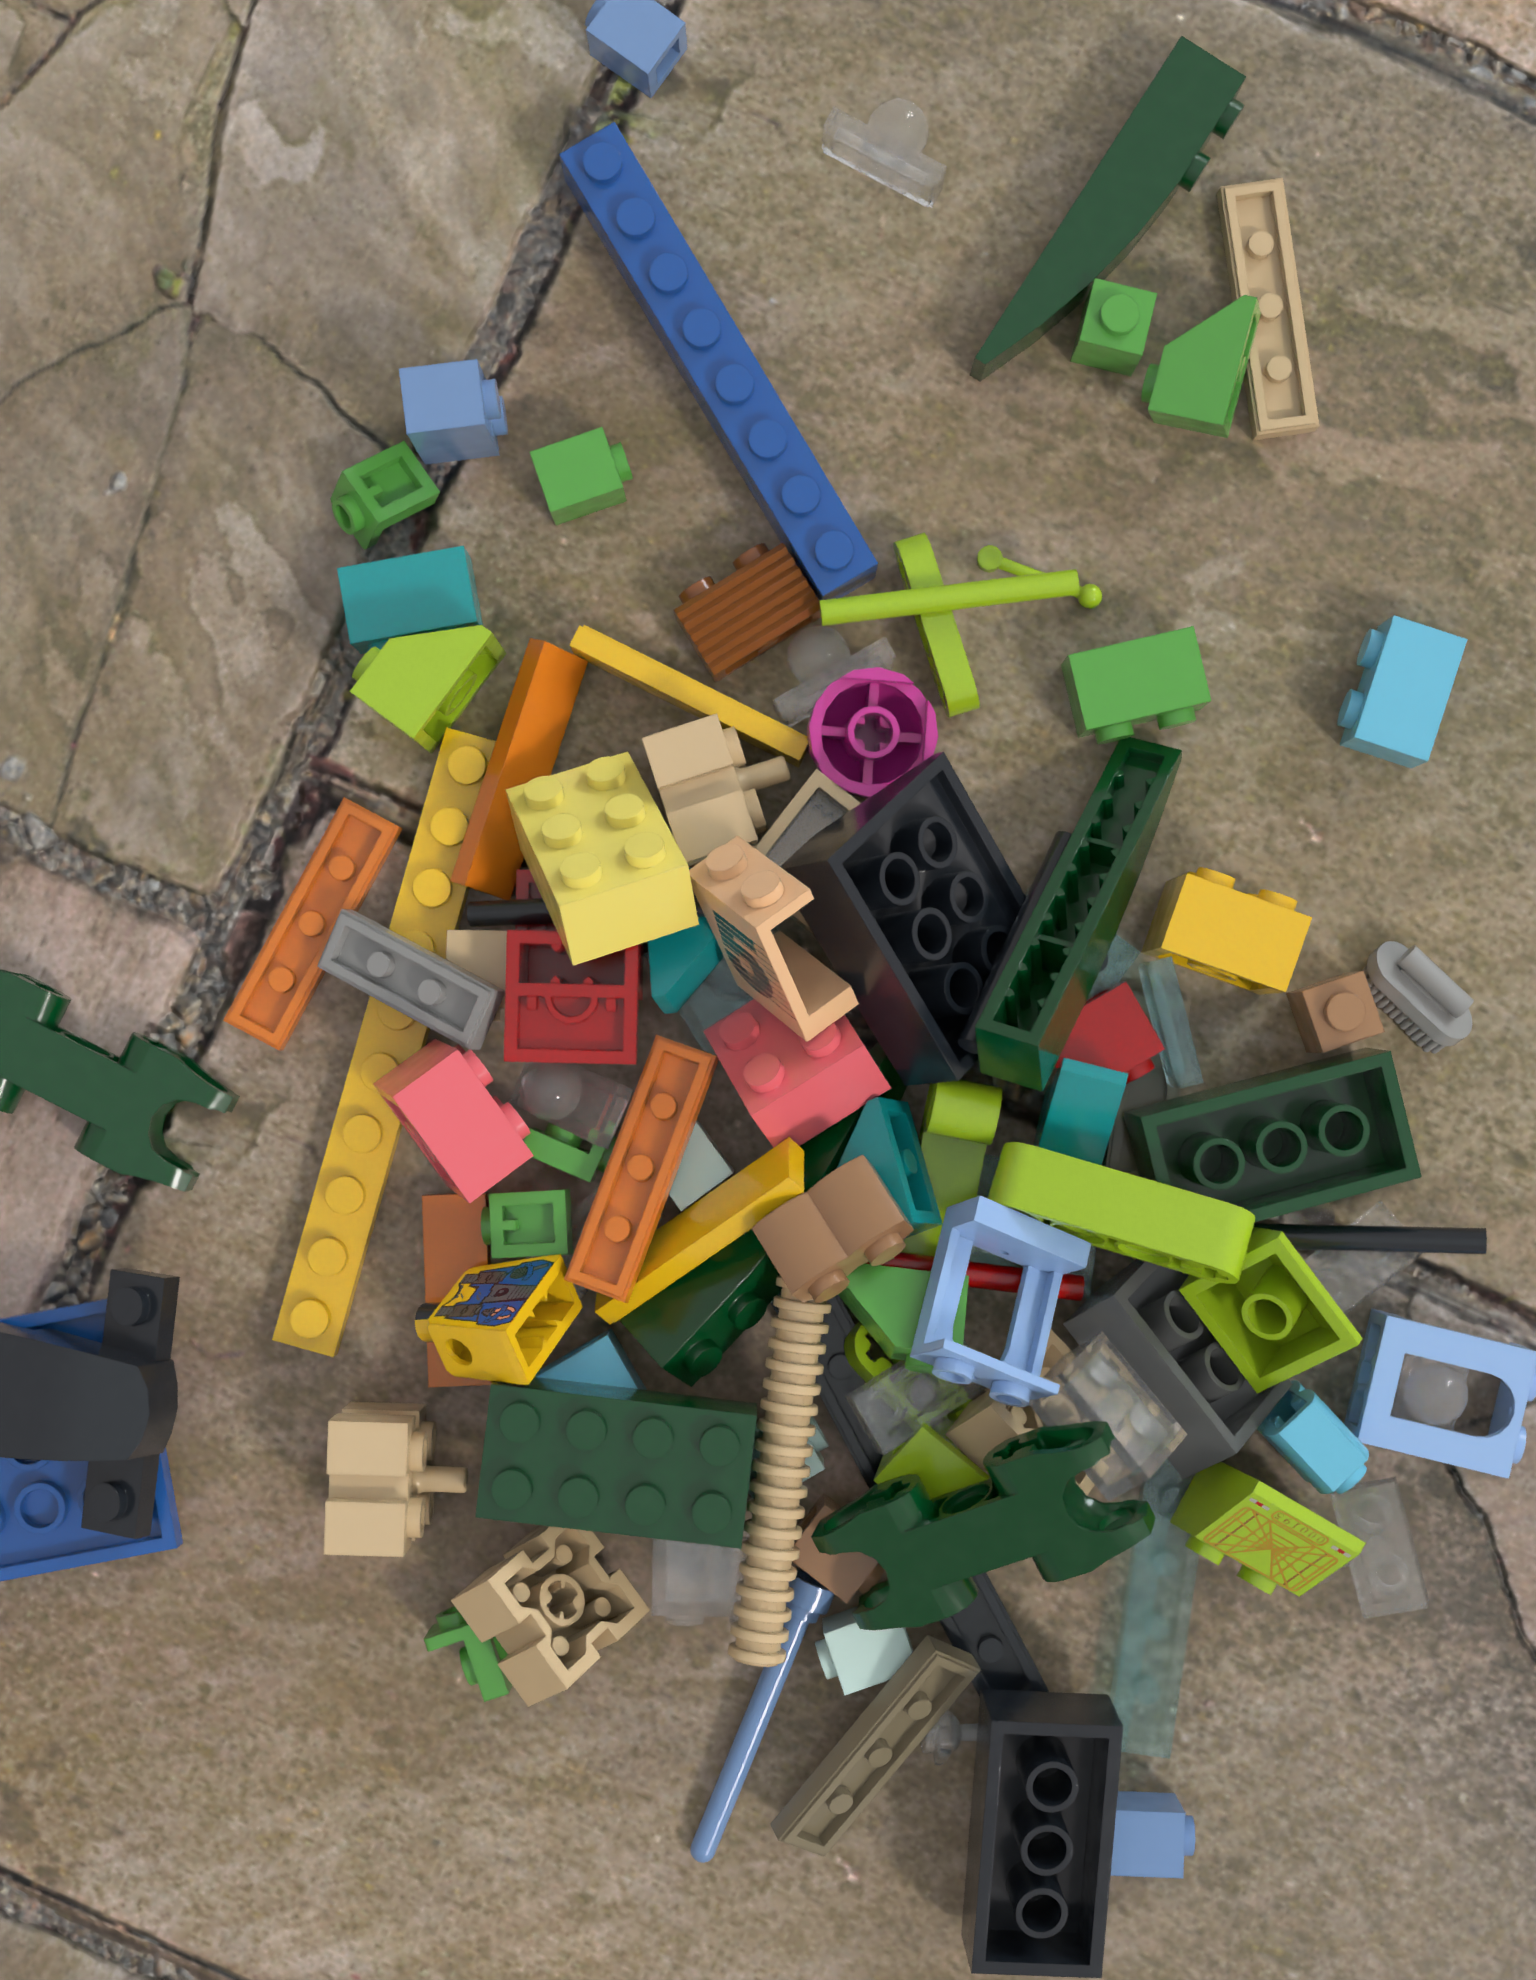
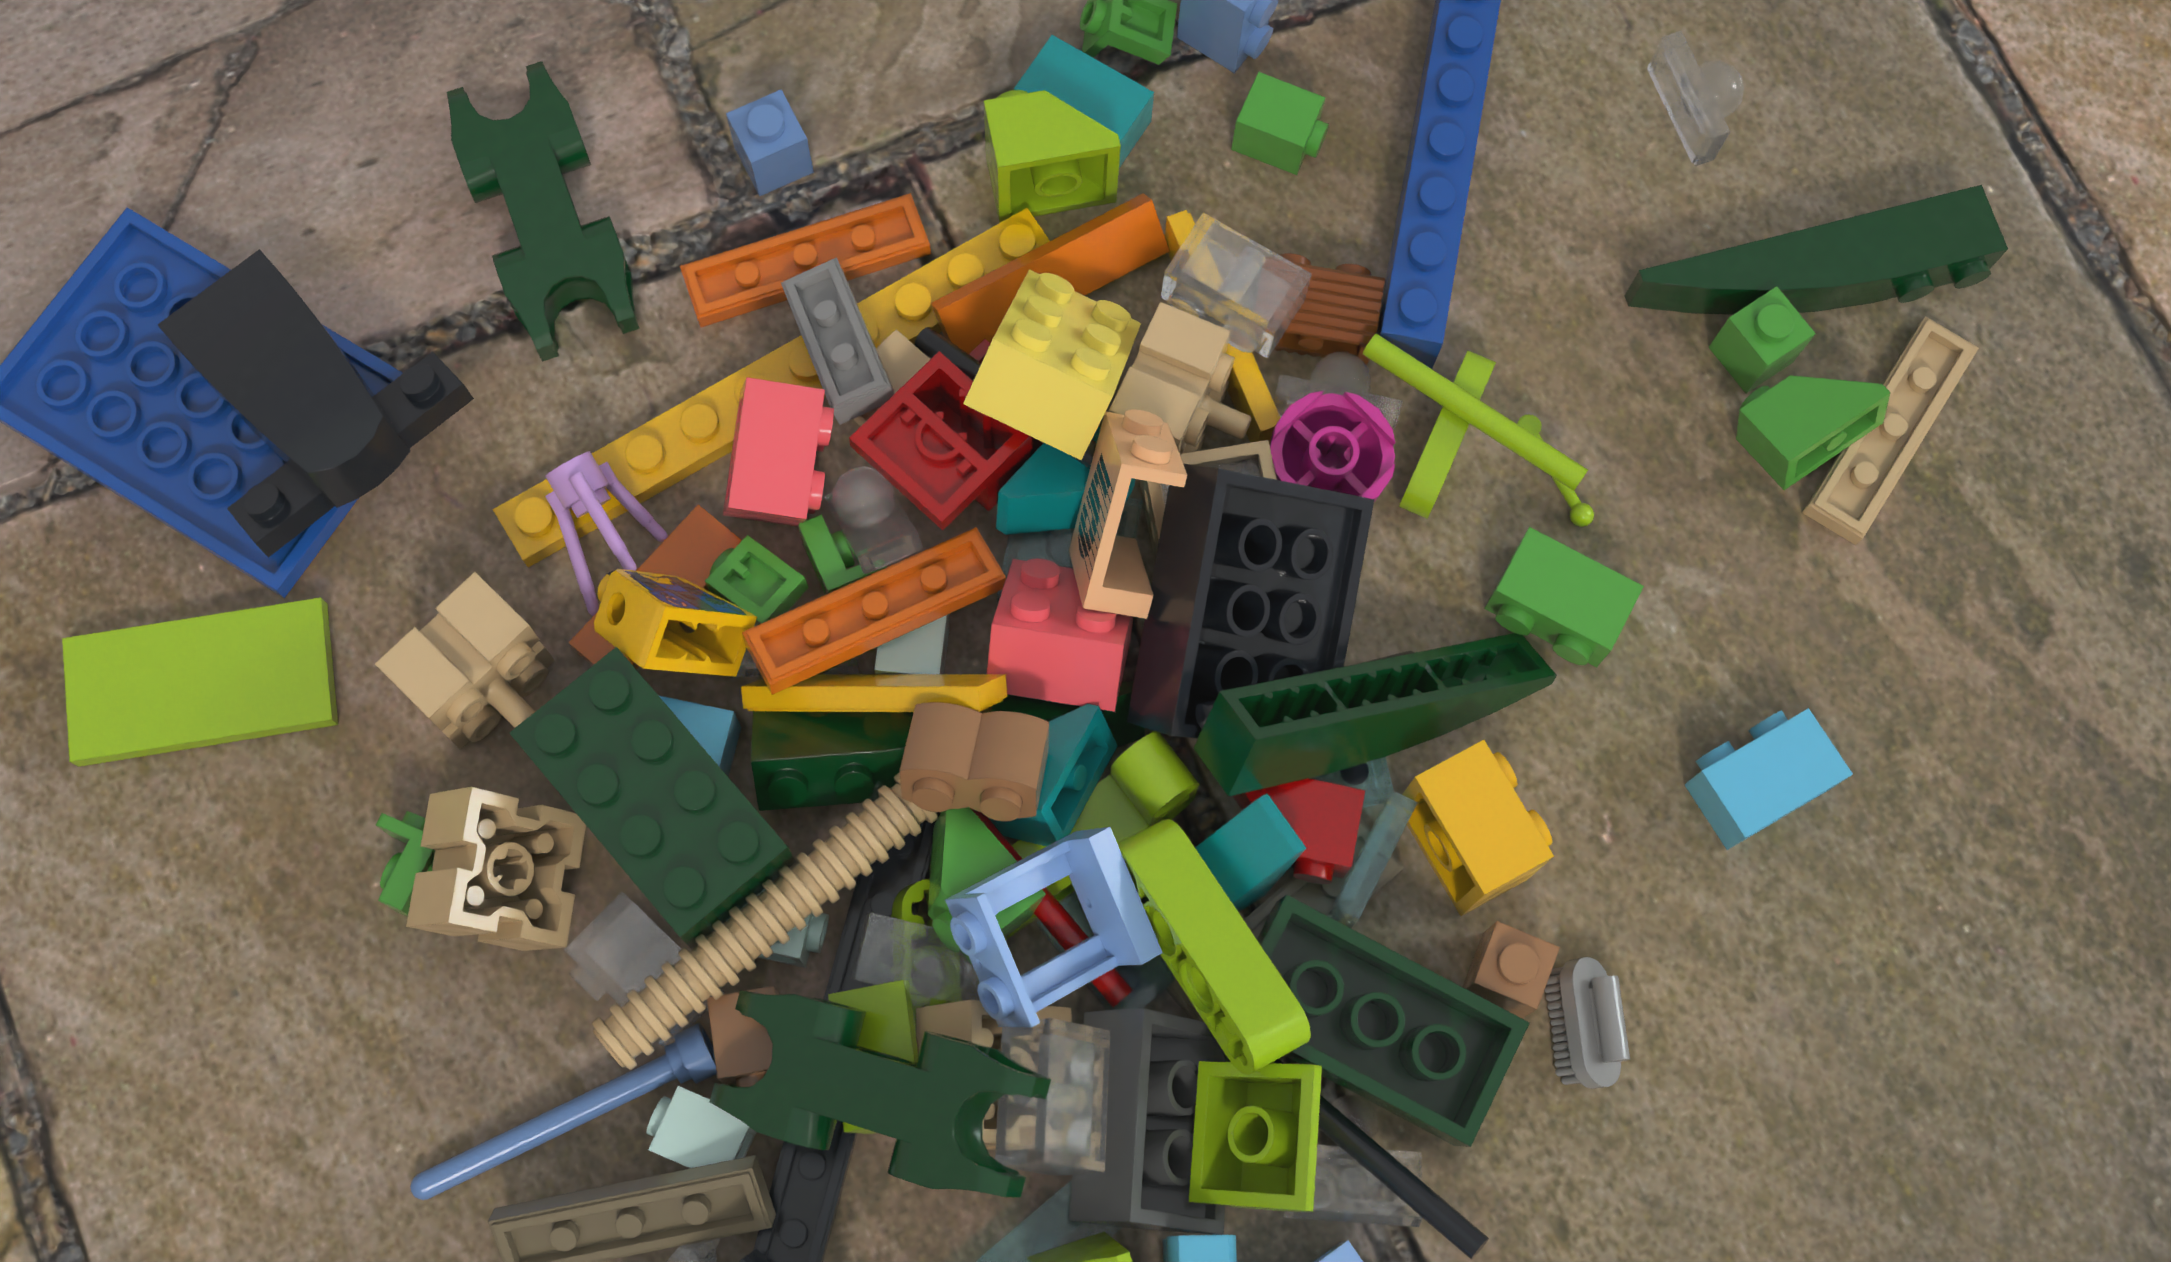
camera: 35 degrees right, 15 degrees down
(184, 1658) = (199, 682): none -> lime tile
(197, 858) = (770, 142): none -> medium blue brick
(330, 1271) = (582, 487): none -> lavender plant
(681, 666) = (1235, 285): none -> clear brick

